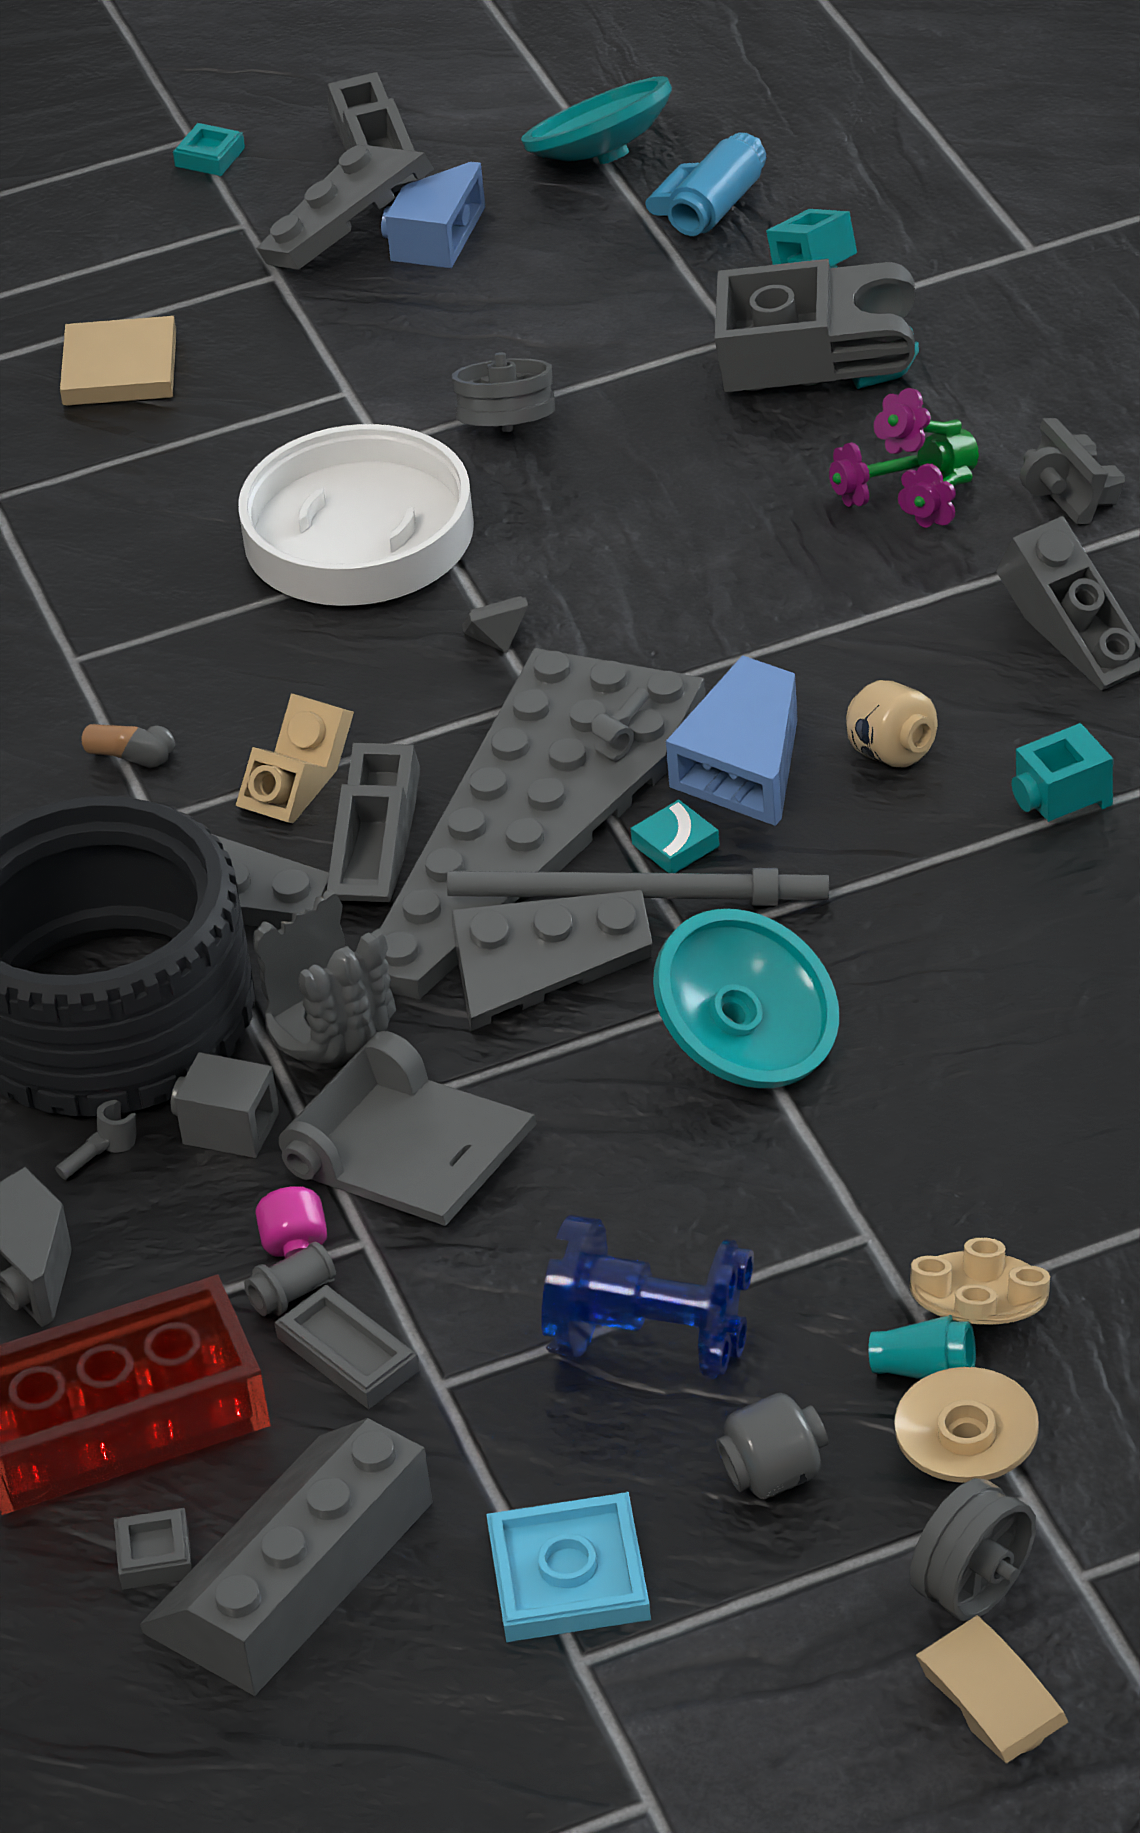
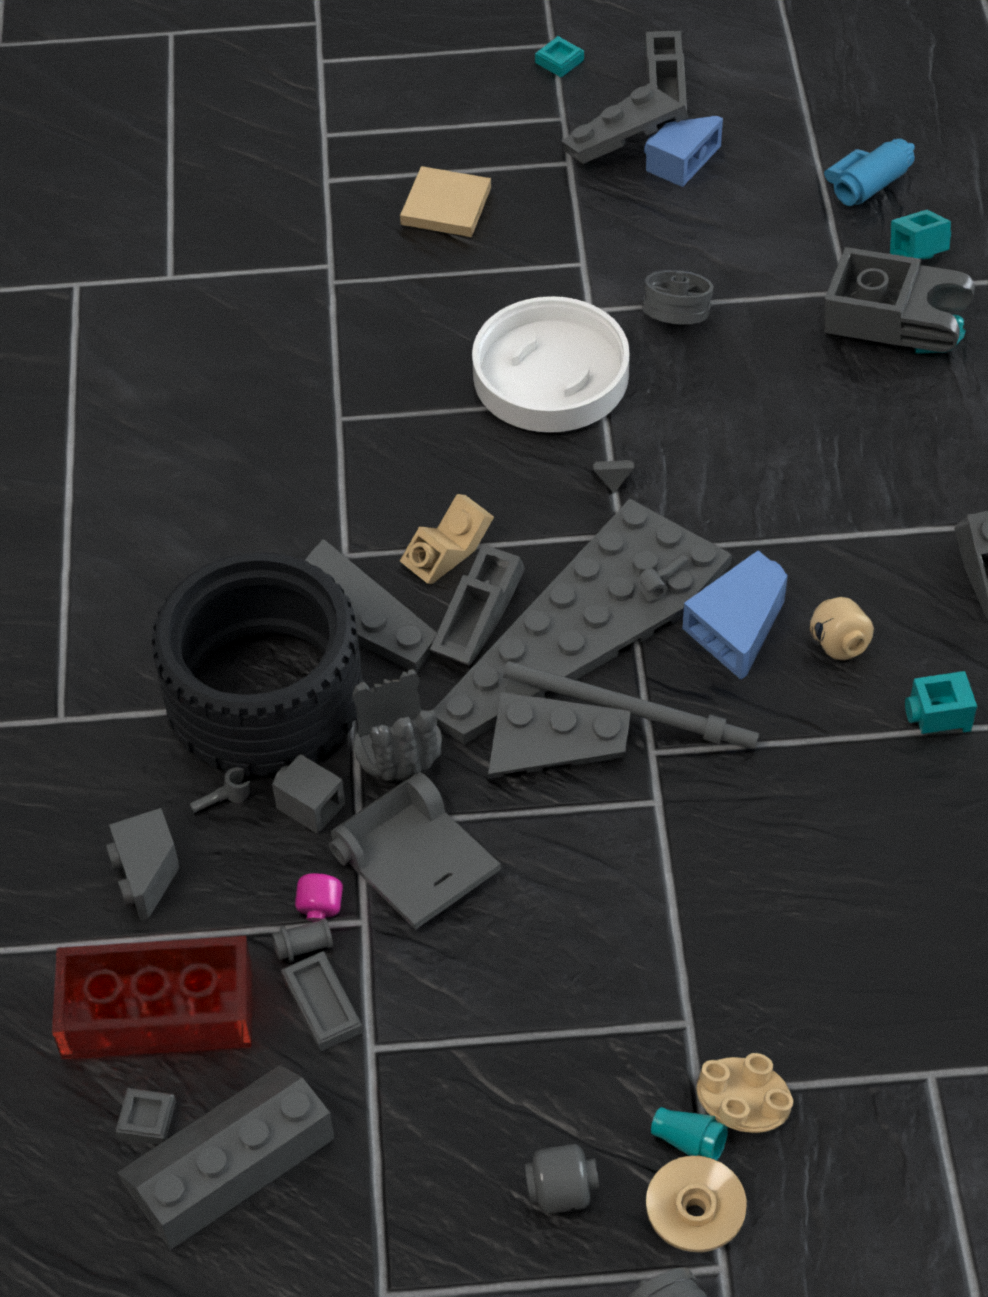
camera: 15 degrees right, 10 degrees up
(130, 743) = (347, 496): arm -> none
(568, 1567) = (400, 1221): medium azure tile -> none
(601, 123) = (812, 105): teal dish -> none
(621, 1293) = (502, 1030): clear blue piece -> none
(675, 837) = (670, 671): teal tile -> none
(761, 980) = (689, 816): teal dish -> none
(942, 460) = (951, 425): magenta plant -> none

